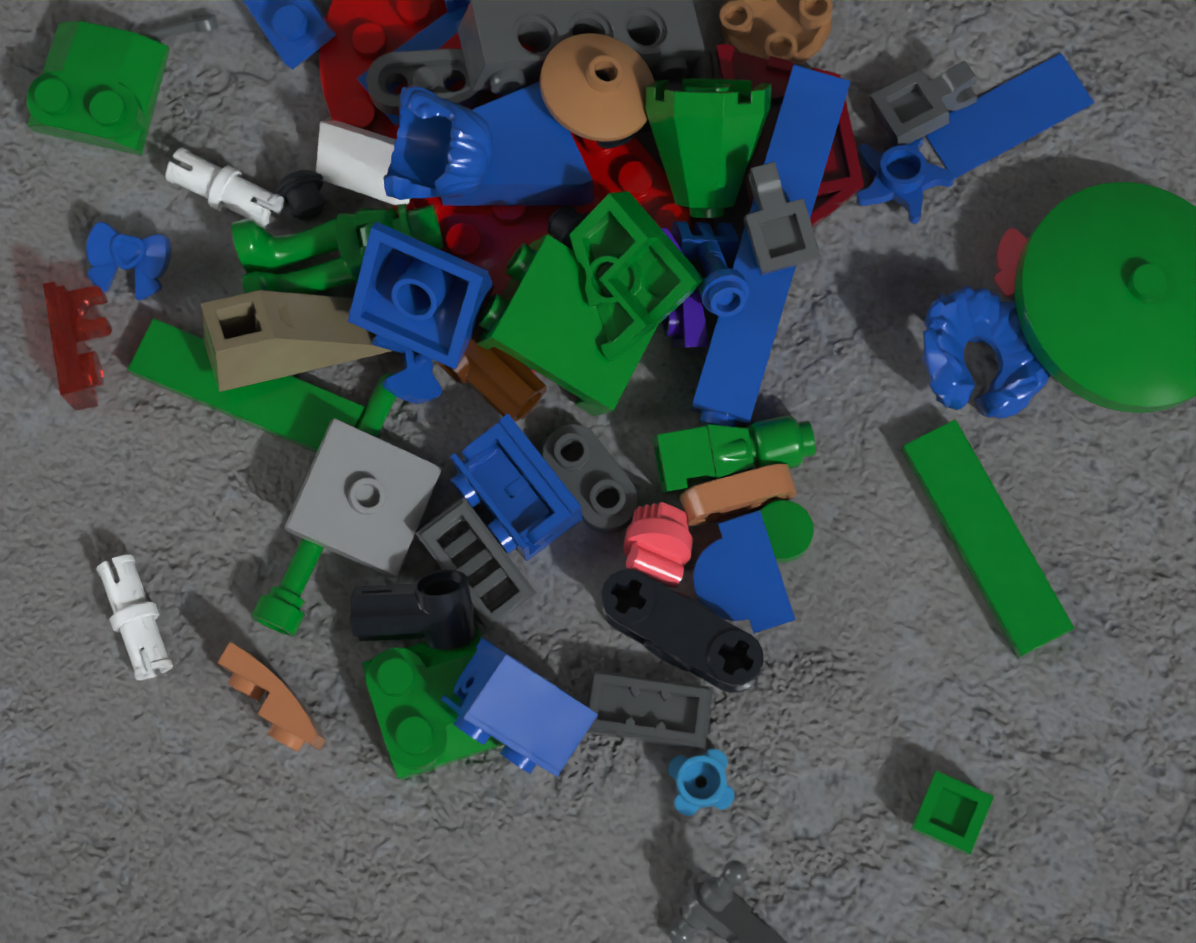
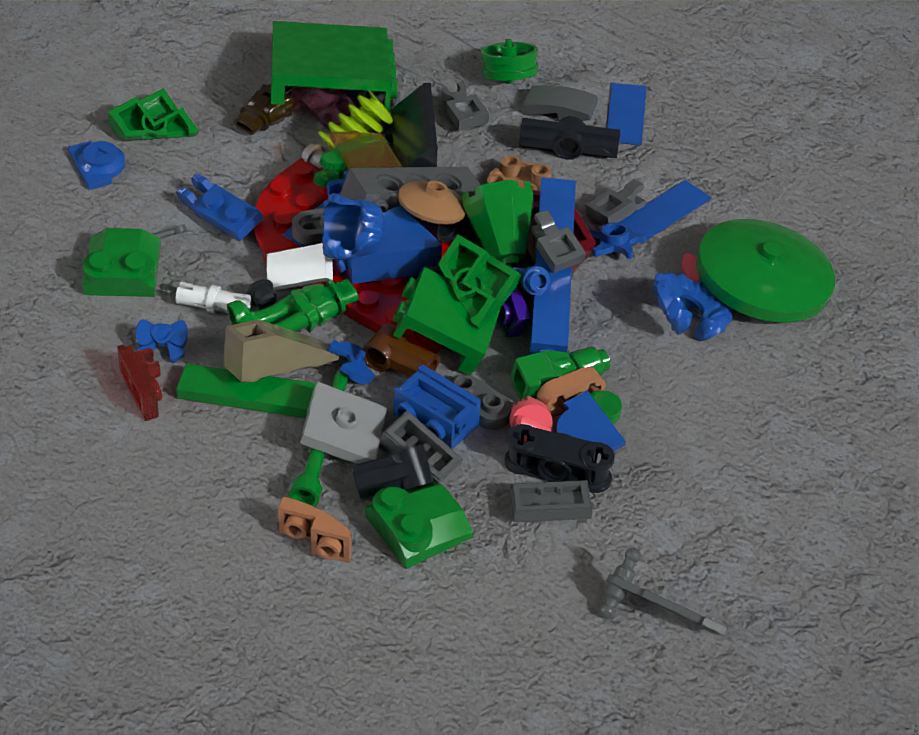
camera: 20 degrees left, 30 degrees down
(134, 617) = (213, 509): white pin -> none
(419, 295) = (356, 305): blue slope -> none
(519, 709) = (474, 498): blue hinge -> none
(712, 768) = (594, 531): dark azure plate -> none
(952, 813) = (751, 519): green plate -> none
(987, 539) = (724, 393): green tile -> none

